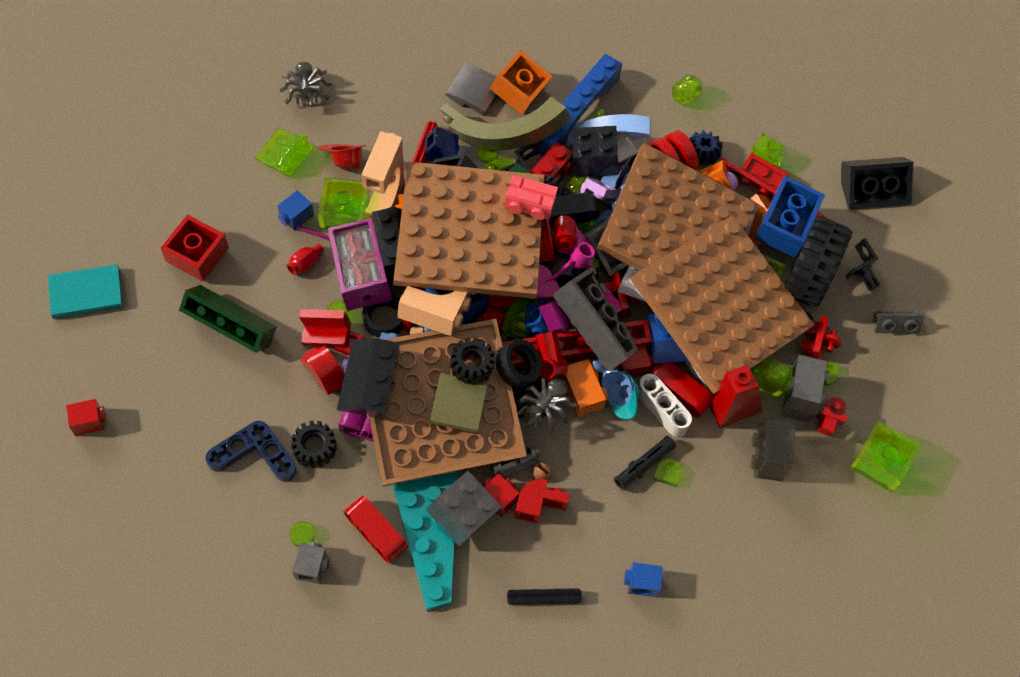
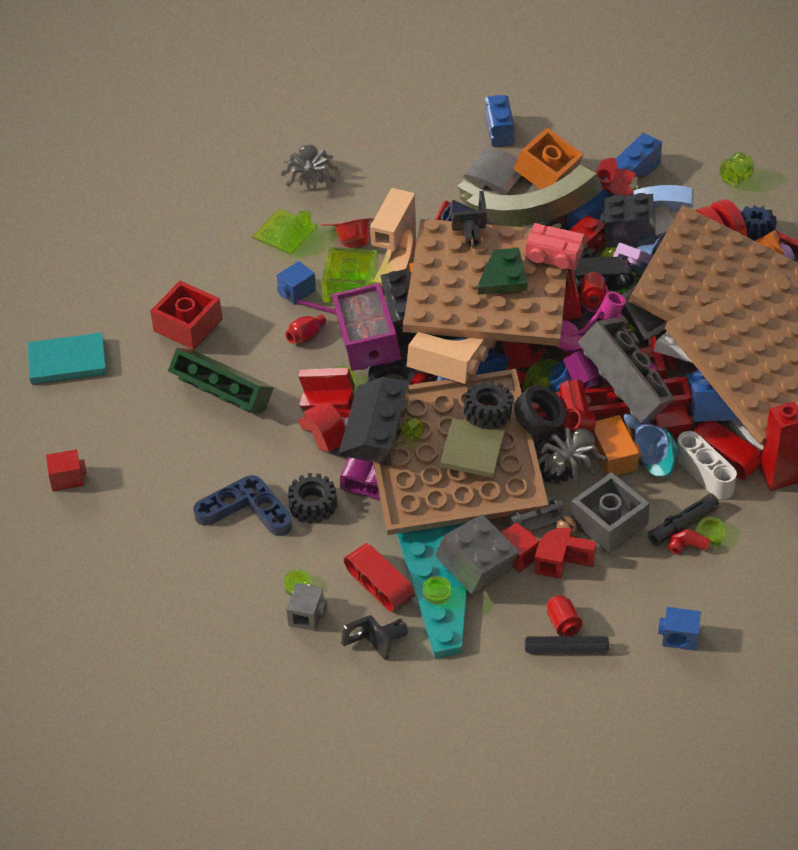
camera: 10 degrees right, 15 degrees down
(376, 592) = (378, 635): none -> black bracket
(404, 385) = (413, 428): none -> clear neon green hinge
(428, 545) = (436, 590): none -> clear neon green tile
(454, 170) = (471, 222): none -> black bracket
(476, 35) = (499, 120): none -> blue brick
(485, 225) = (503, 273): none -> dark green wing
(541, 568) = (564, 616): none -> red brick
(581, 459) = (610, 512): none -> flat silver brick
(582, 105) = (614, 178): none -> red plate
(648, 482) = (686, 538): none -> red arm

